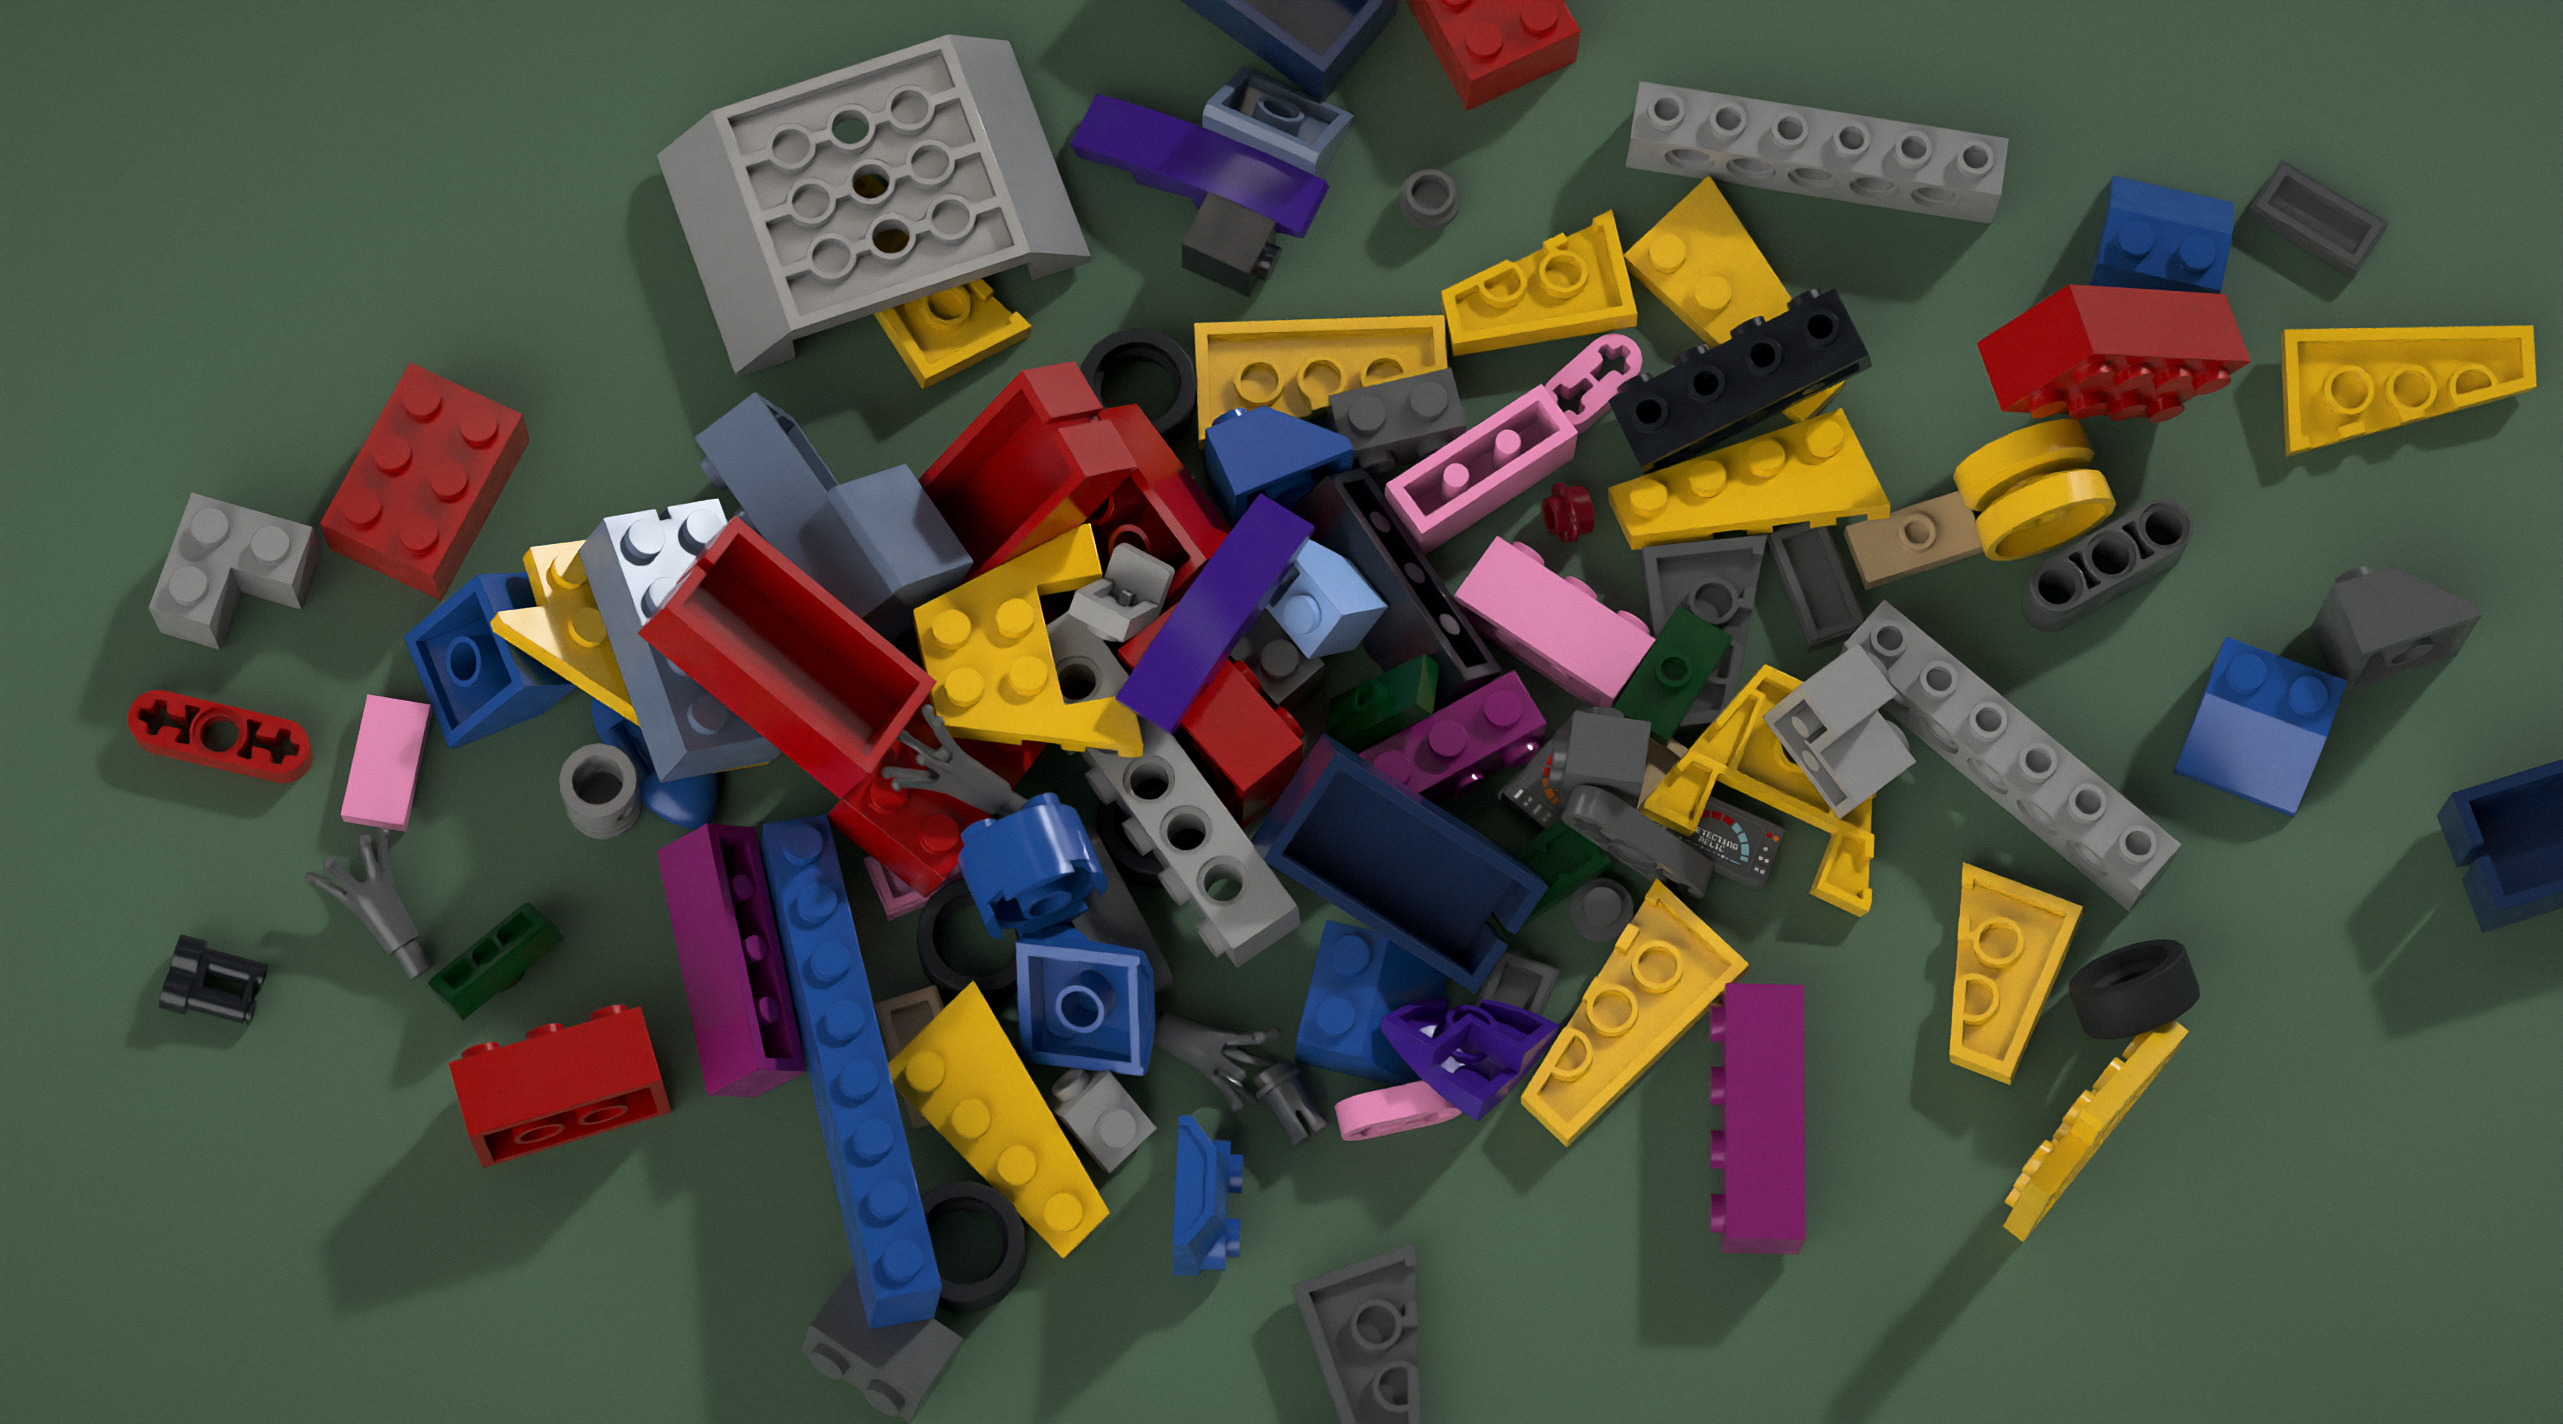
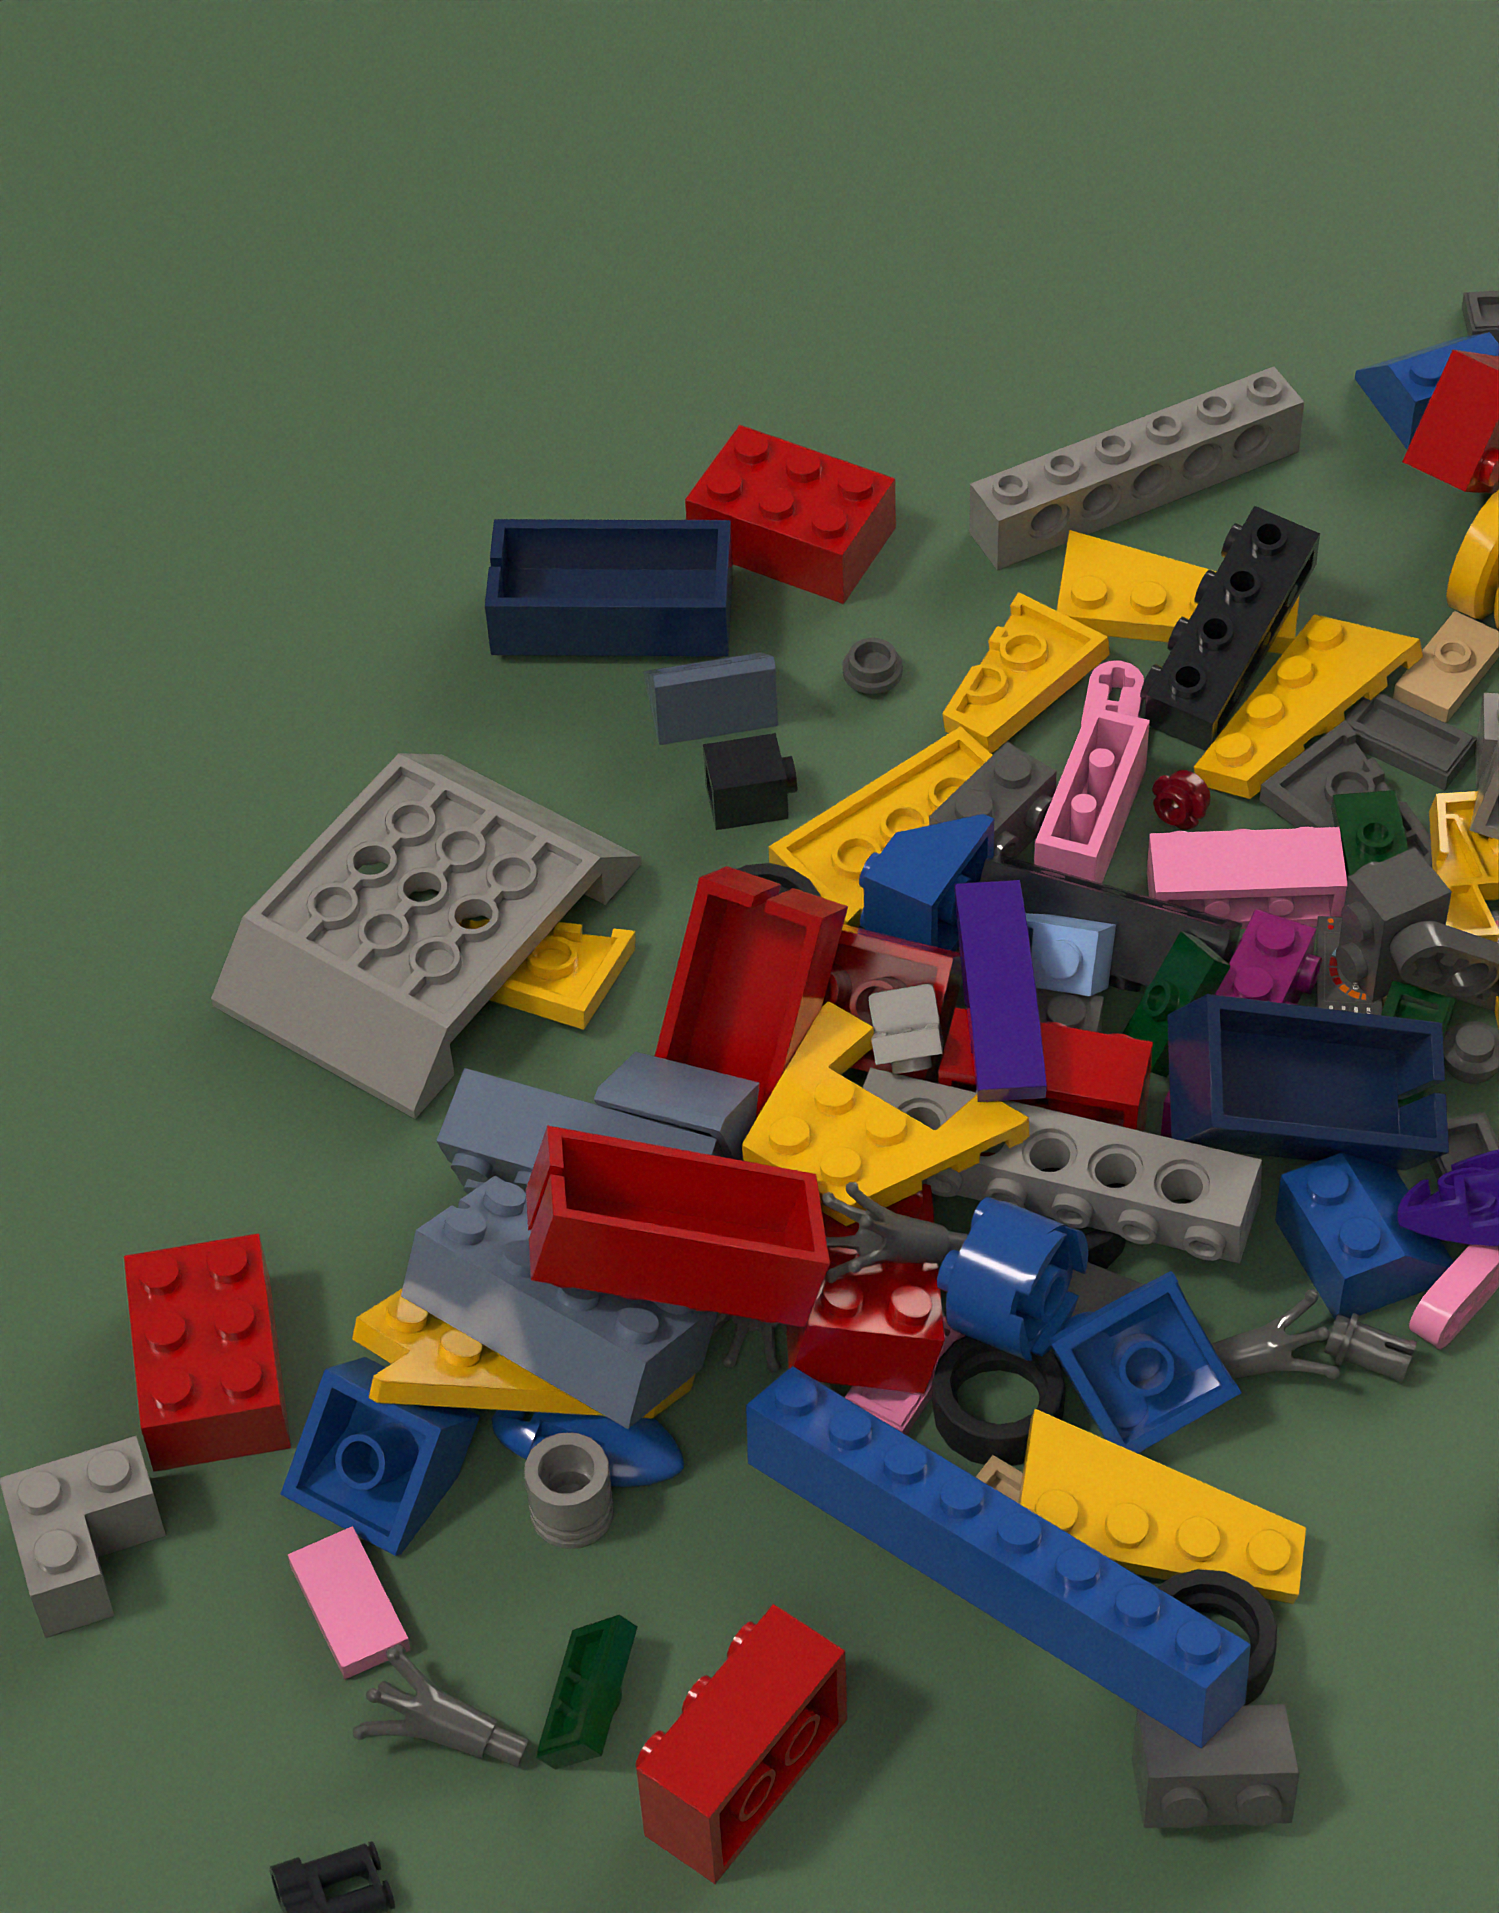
camera: 30 degrees left, 20 degrees down
(171, 740) = (160, 1708): red beam -> none
(731, 961) = (804, 1546): magenta brick -> none
(1099, 1115) = (1226, 1457): light grey bracket -> none
(1196, 161) = (666, 742): dark purple slope -> none
(1203, 1181) = (1373, 1457): blue slope -> none

